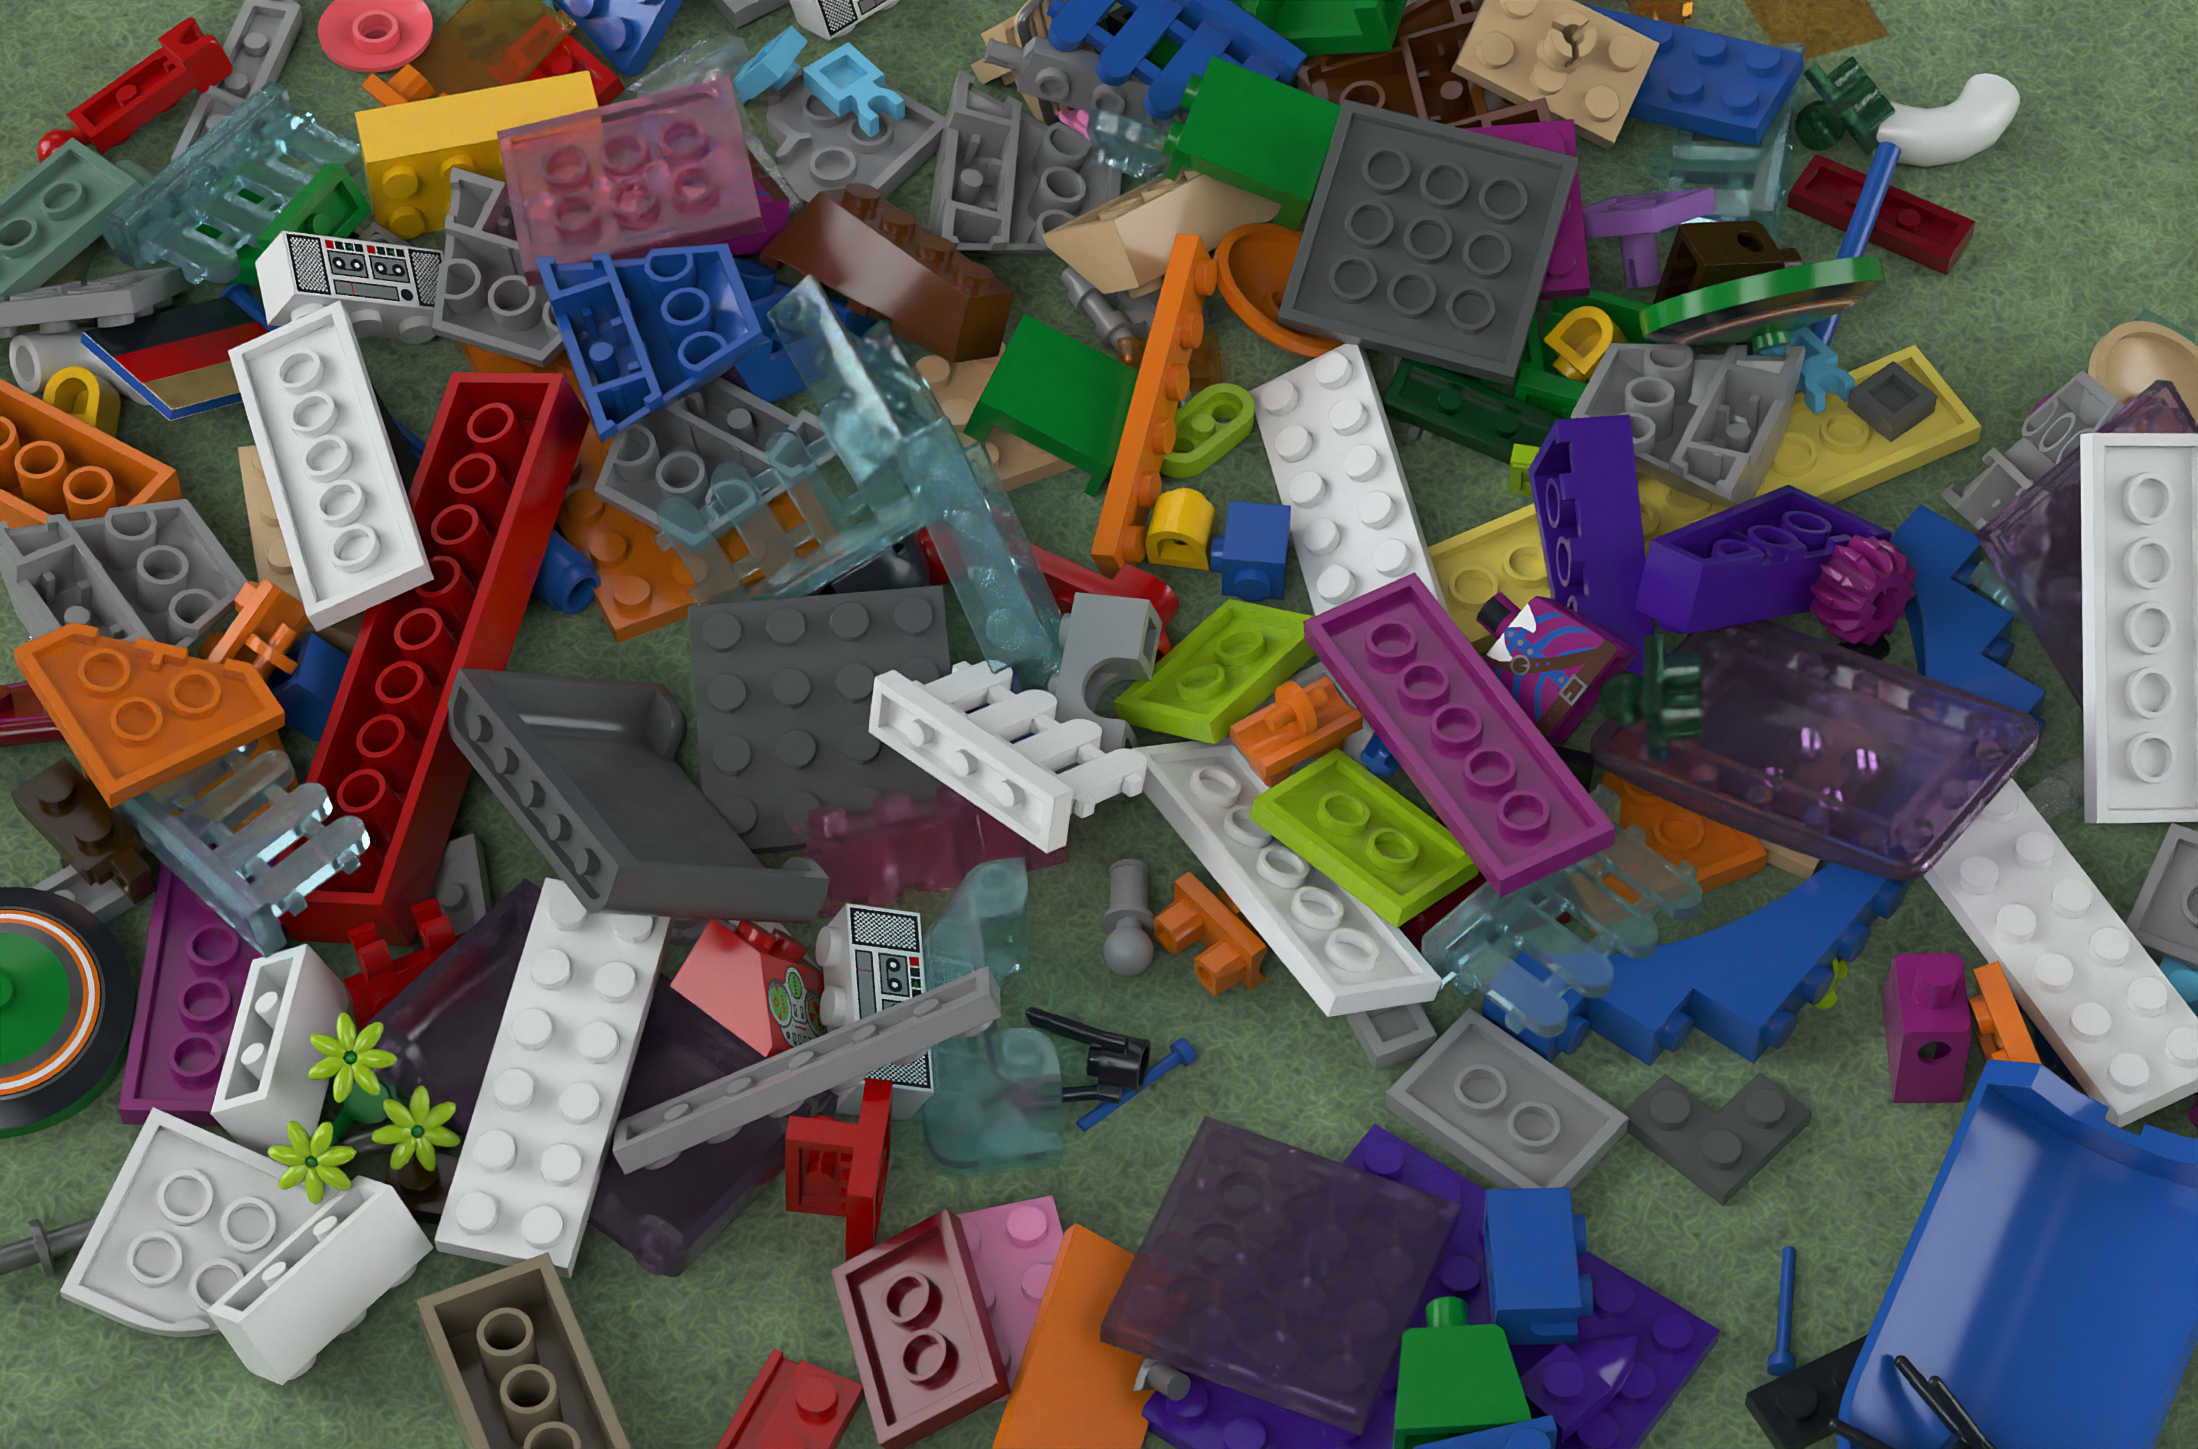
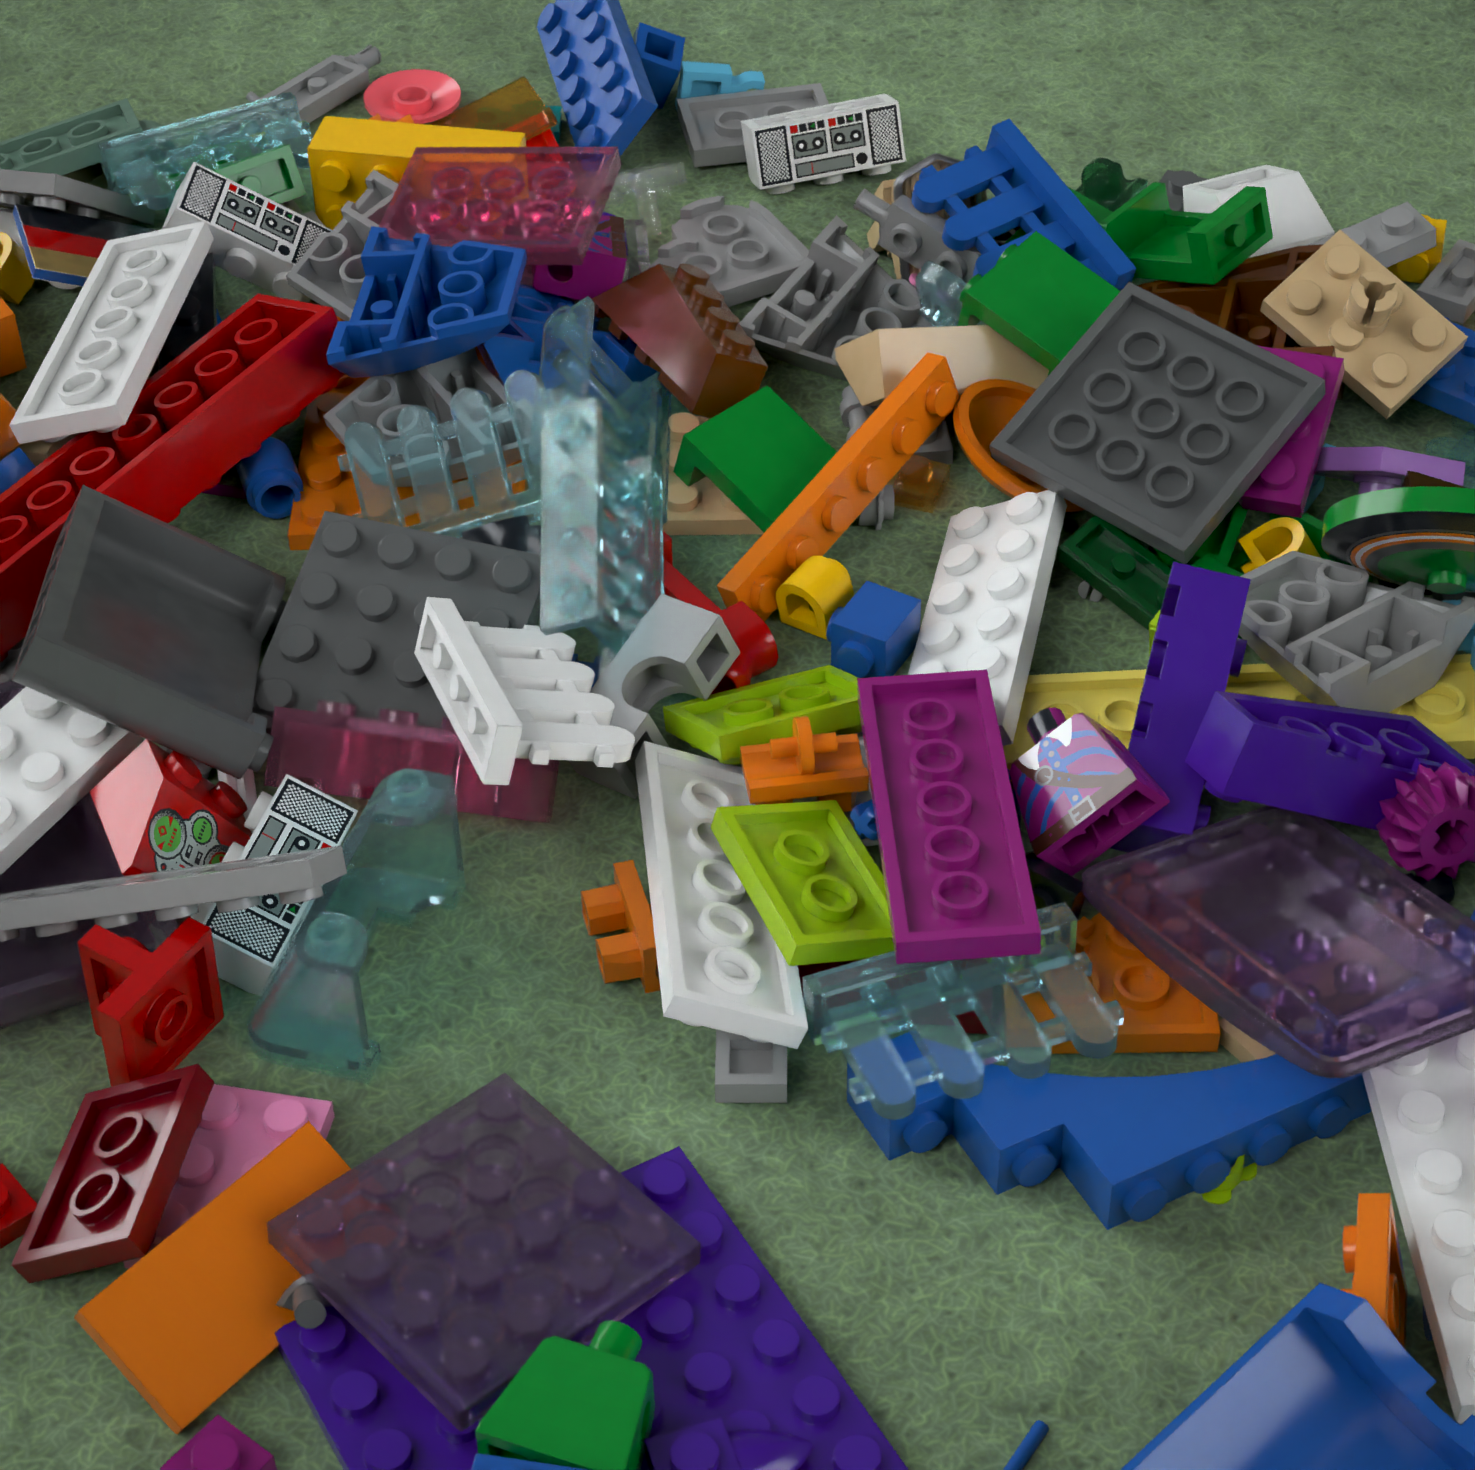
camera: 25 degrees right, 10 degrees down
(149, 88) = (219, 90): red plate -> none
(771, 66) = (689, 183): medium azure plate -> none
(852, 83) = (746, 209): medium azure plate -> none
(1113, 1058) = (461, 999): black plant -> none
(1128, 921) = (548, 913): light grey pin -> none
(1181, 1053) = (541, 1023): blue piece -> none
(1204, 436) = (892, 533): lime plate -> none
(1505, 1108) = (818, 1184): light grey plate -> none
(1534, 1265) = (734, 1329): blue brick -> none
(1663, 698) = (1167, 843): clear green hips -> none
(1719, 1148) = (1023, 1296): dark grey plate -> none
(1921, 1005) = (1301, 1223): magenta torso -> none

